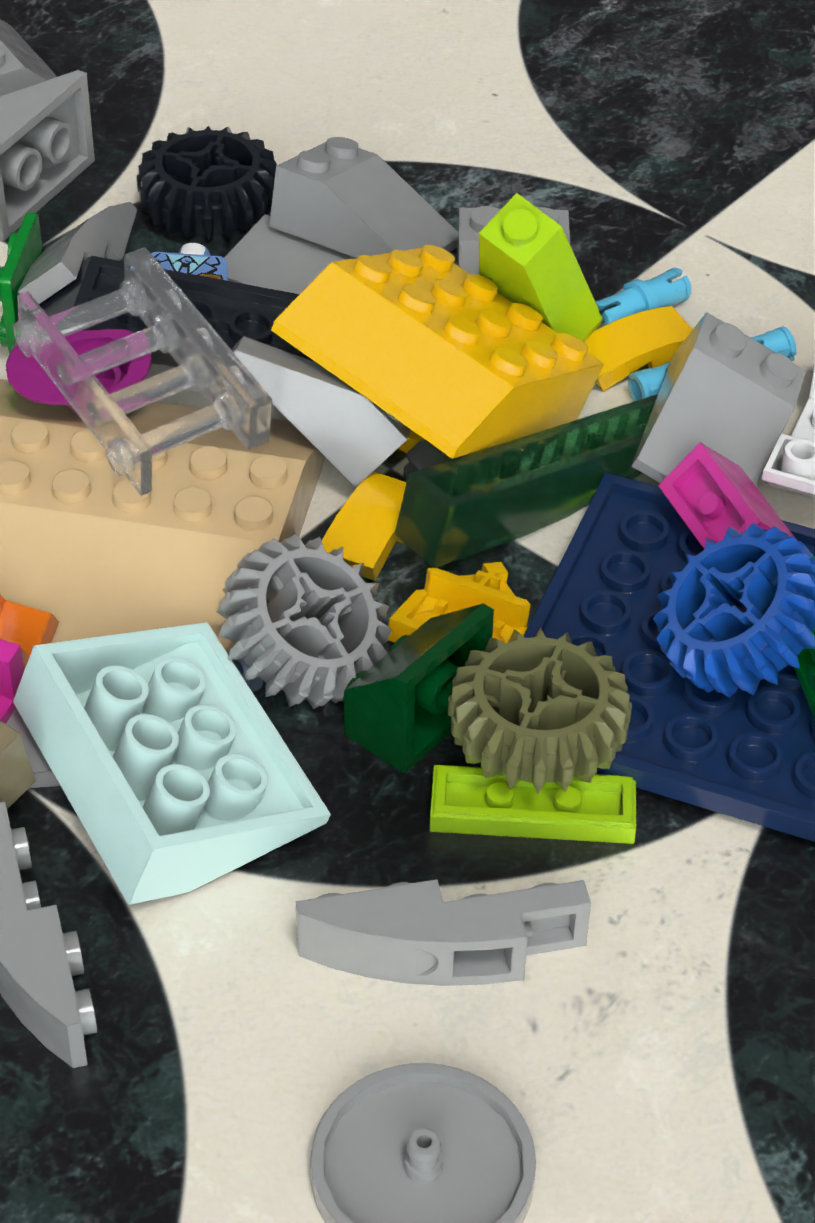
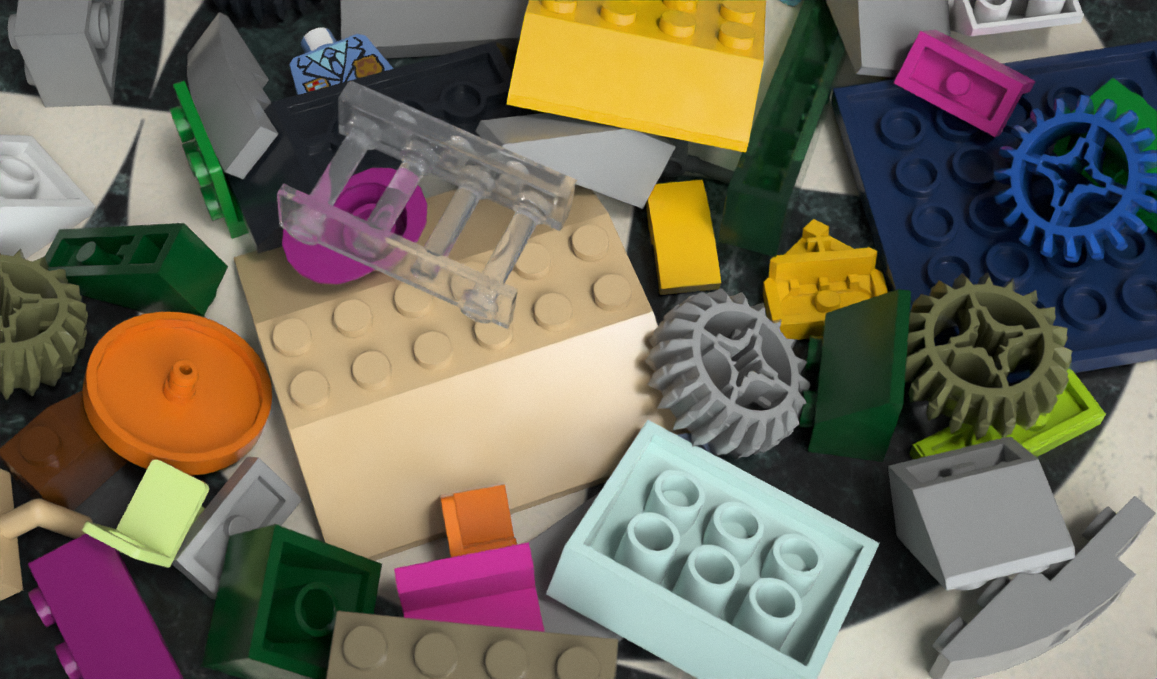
camera: 30 degrees left, 15 degrees up
(424, 821) = (978, 514): none -> light grey slope

